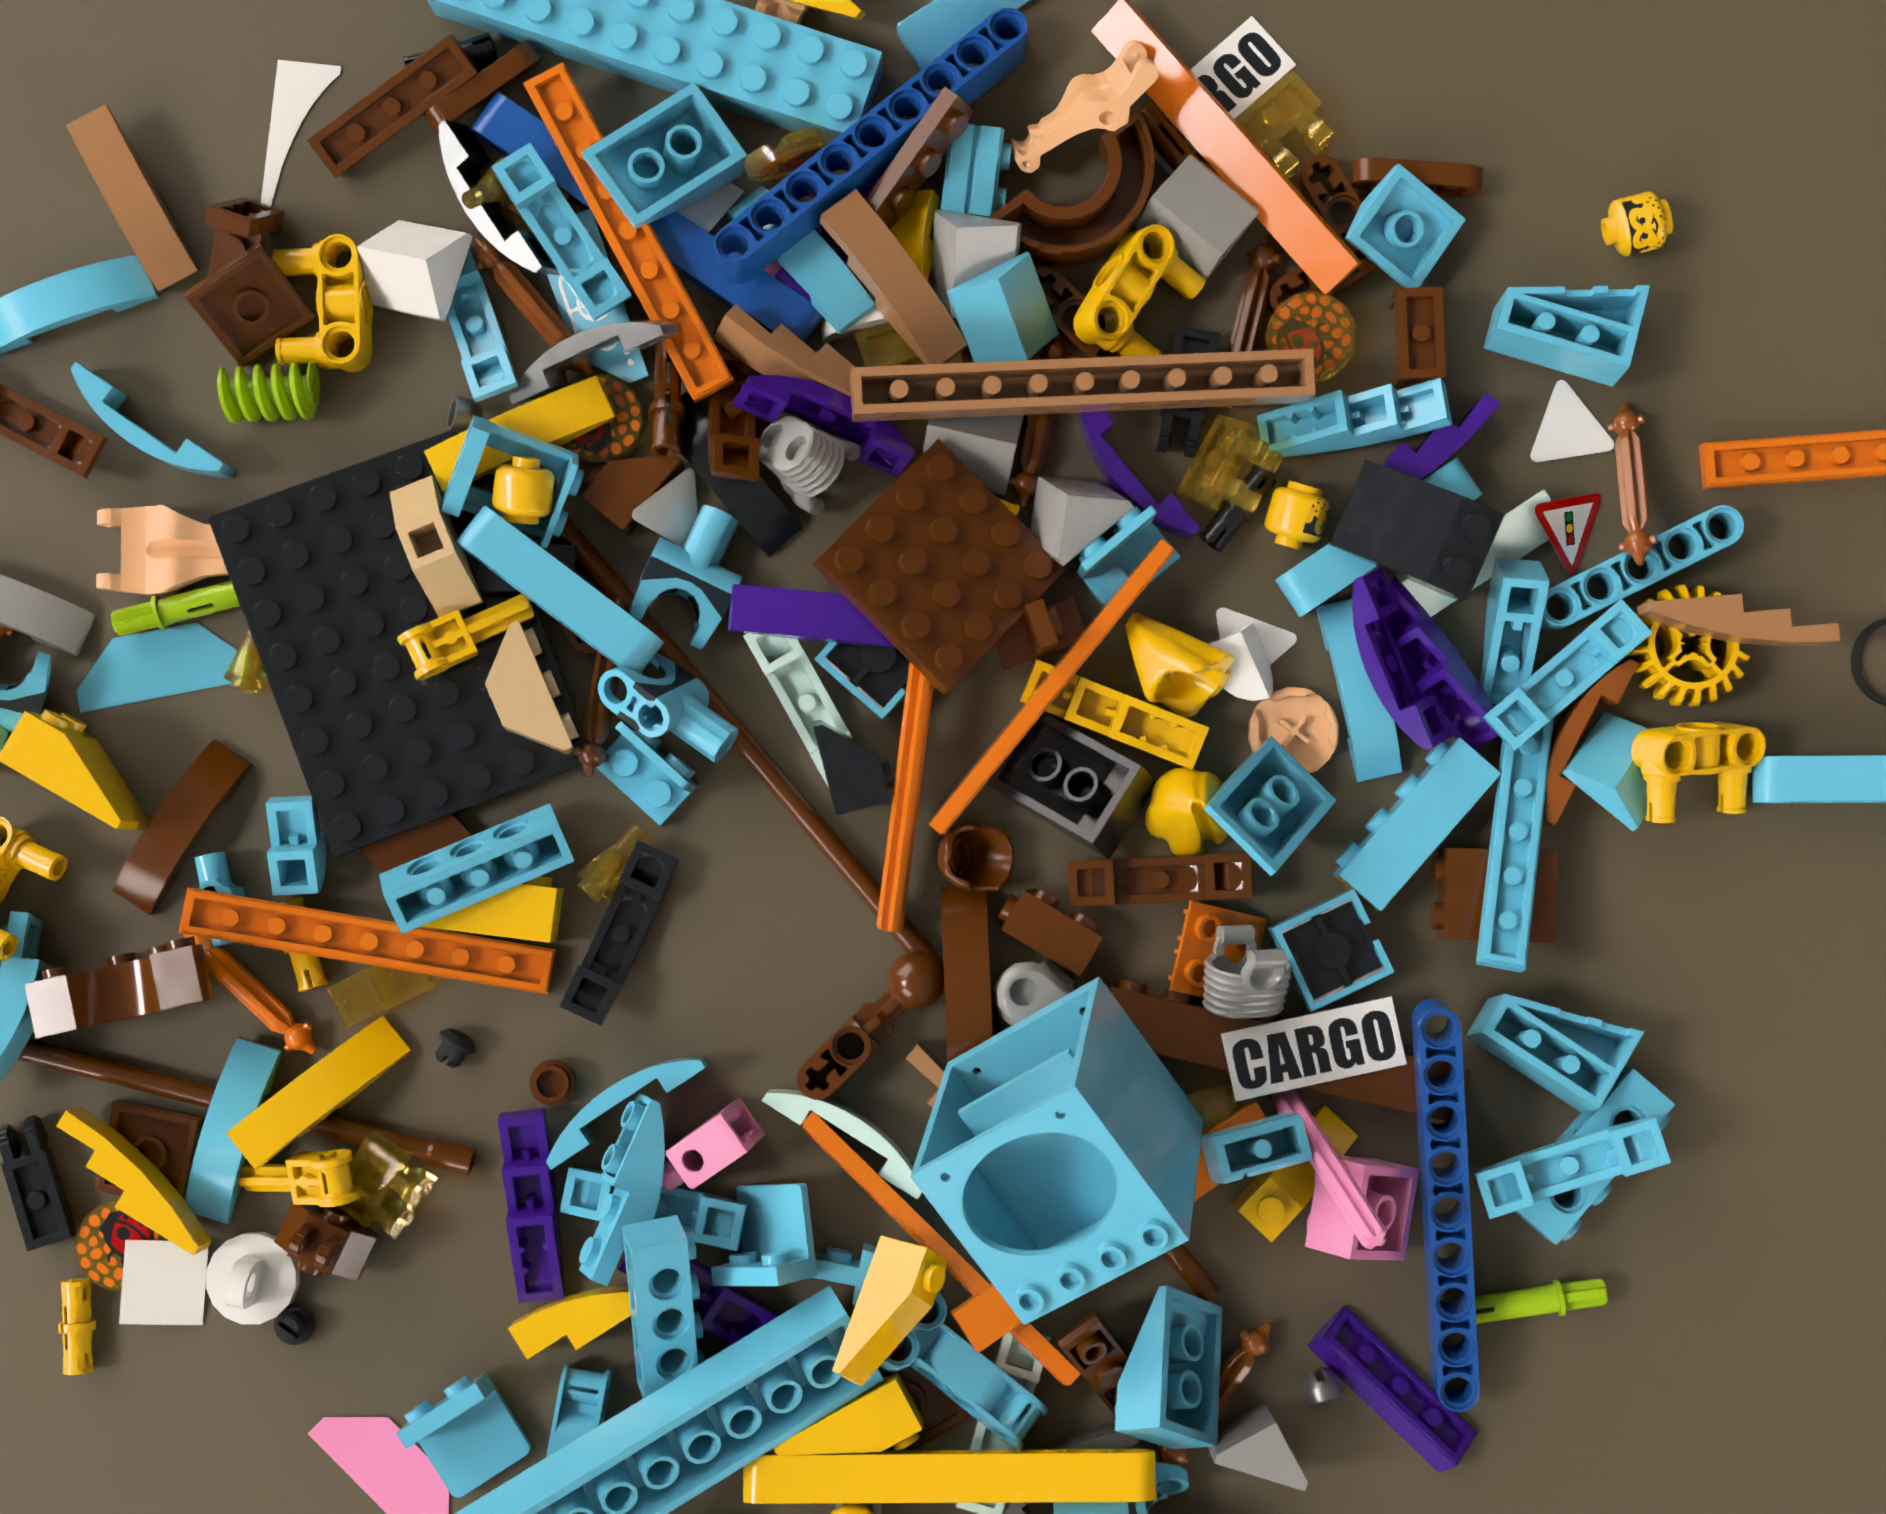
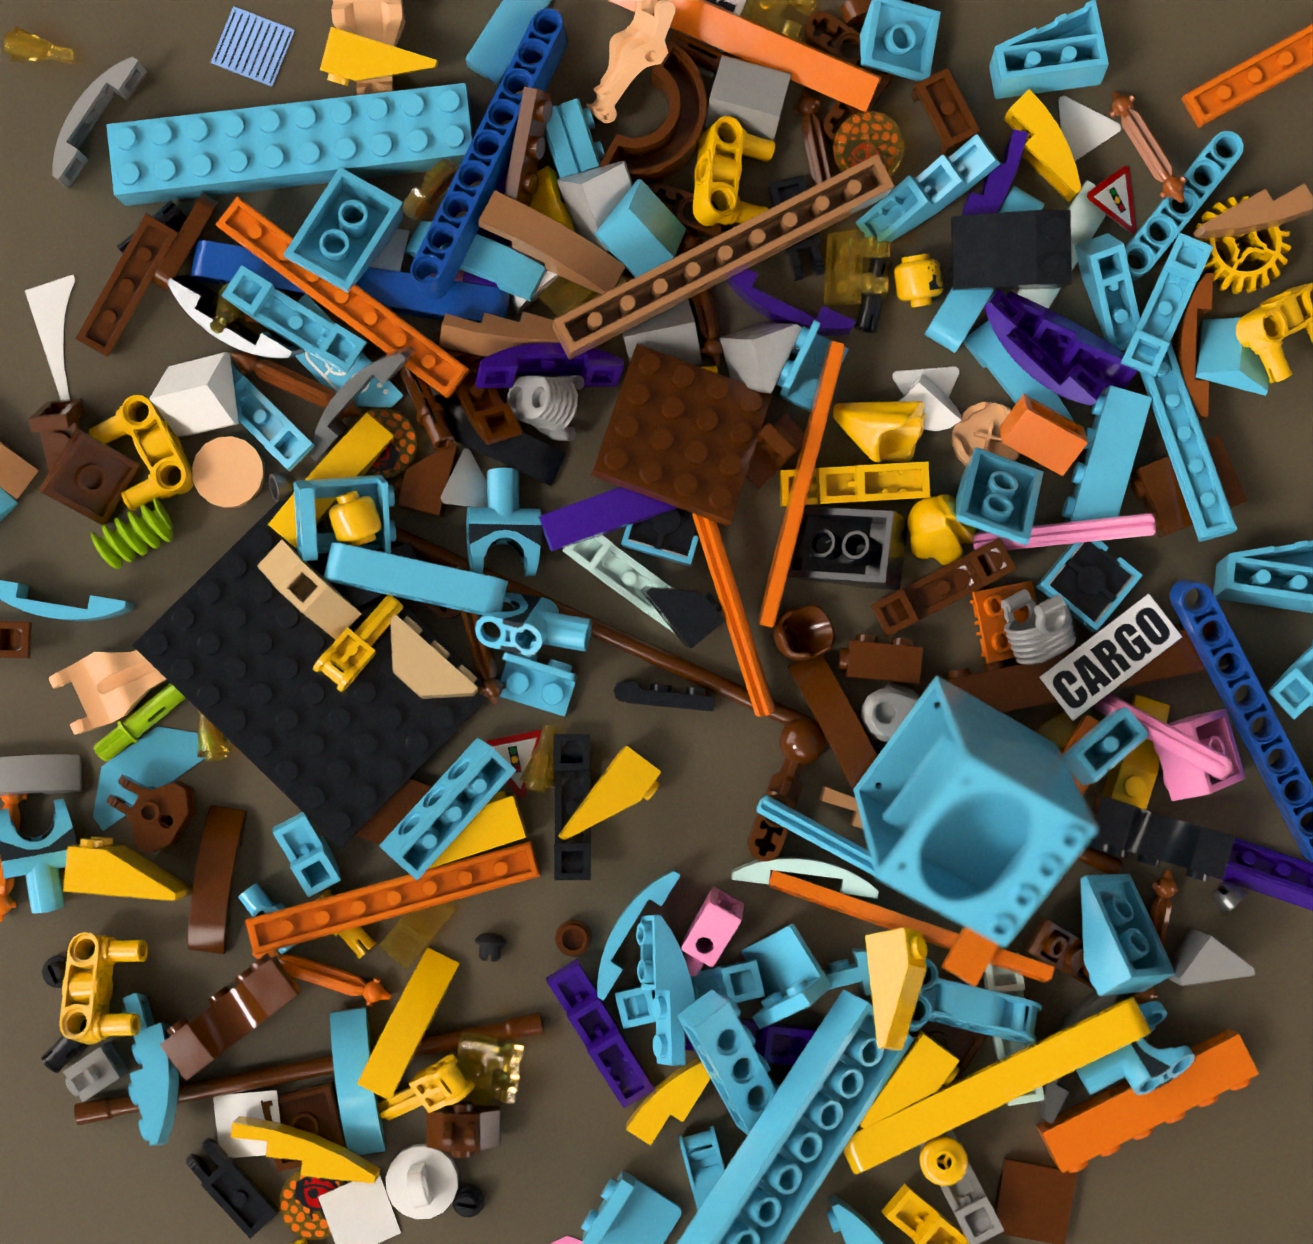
camera: 30 degrees left, 0 degrees up
(96, 1098) = (230, 1107): none -> white sticker
(143, 715) = (152, 810): none -> reddish brown hinge
(410, 371) = (228, 472): none -> light nougat tile
(586, 841) = (517, 751): none -> sticker
(682, 936) = (619, 787): none -> yellow slope
(781, 855) = (661, 696): none -> black hinge
(876, 1086) = (816, 833): none -> medium azure axle
(1269, 1281) = (1159, 839): none -> black brick
(1345, 889) = (1077, 532): none -> bright pink axle
(1355, 758) = (1043, 435): none -> orange panel
(1515, 426) = (1045, 144): none -> yellow slope

